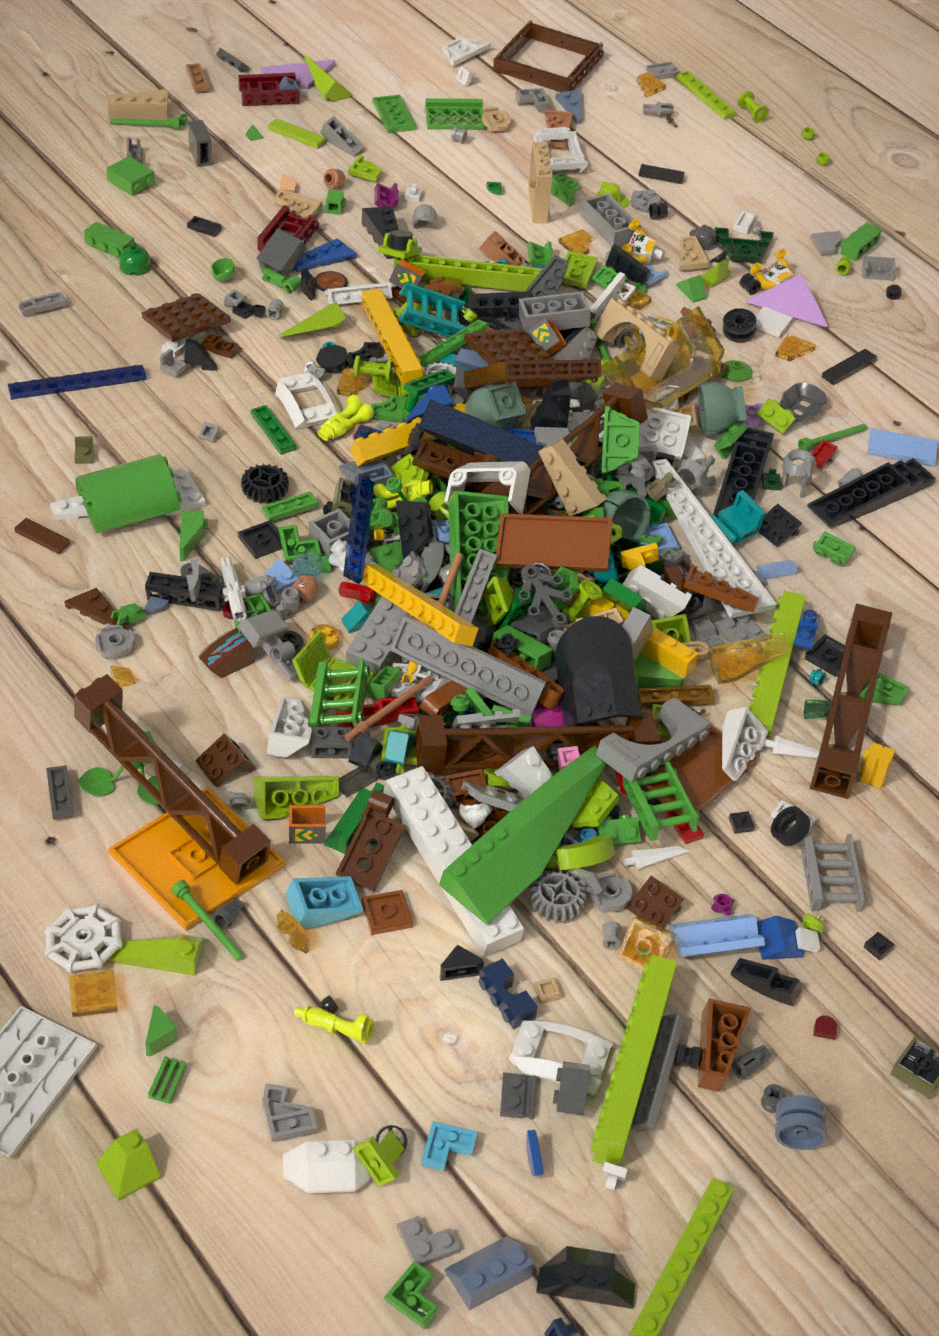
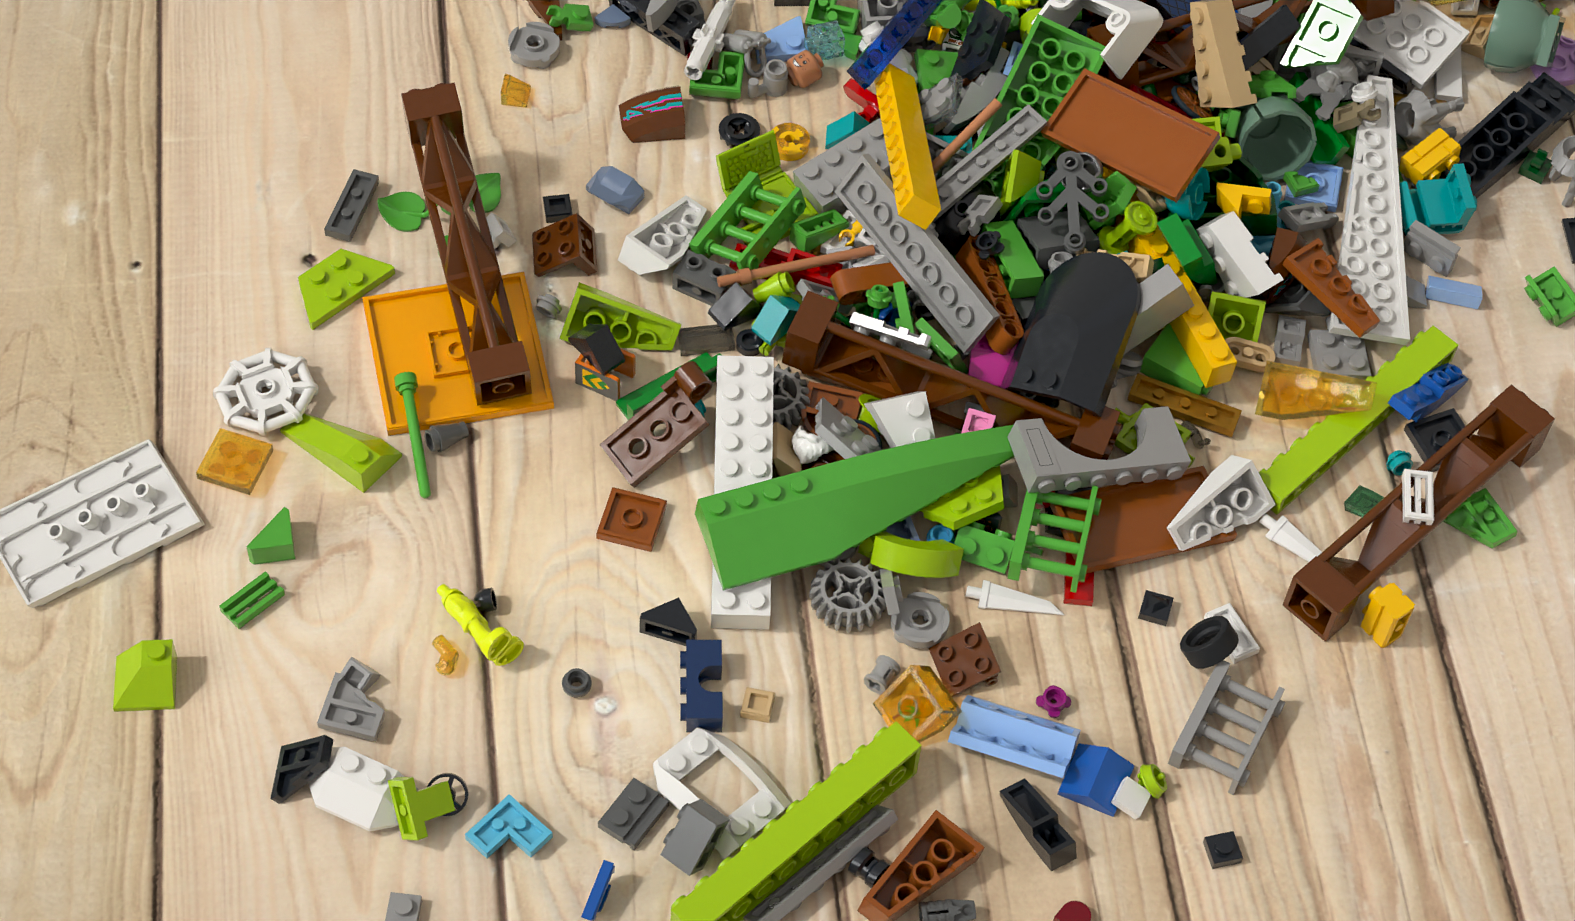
camera: 30 degrees right, 10 degrees up
(84, 846) = (339, 283): none -> lime wing
(201, 738) = (557, 207): none -> black tile
(232, 709) = (616, 188): none -> sand blue slope
(267, 631) = (711, 105): light grey plate -> none
(280, 1170) = (299, 765): none -> black wing
(297, 935) = (502, 489): clear yellow slope -> none
(299, 808) = (598, 347): none -> black slope
(322, 900) = (561, 470): medium azure slope -> none
(328, 1054) = (448, 658): none -> clear yellow arm
(383, 727) = (779, 284): none -> lime cone
(424, 1025) = (573, 676): none -> dark grey plate
(488, 625) = (980, 211): none -> light grey plate
(589, 453) = (1268, 35): none -> black tile
(659, 471) = (1363, 92): none -> white plate
(716, 495) = (1430, 157): none -> yellow brick
(727, 440) = (1507, 83): bright green bracket -> none
(751, 547) = (1431, 248): none -> light grey plate
(779, 525) = (1497, 232): black hinge -> none
(849, 687) = (1417, 516): none -> white tile

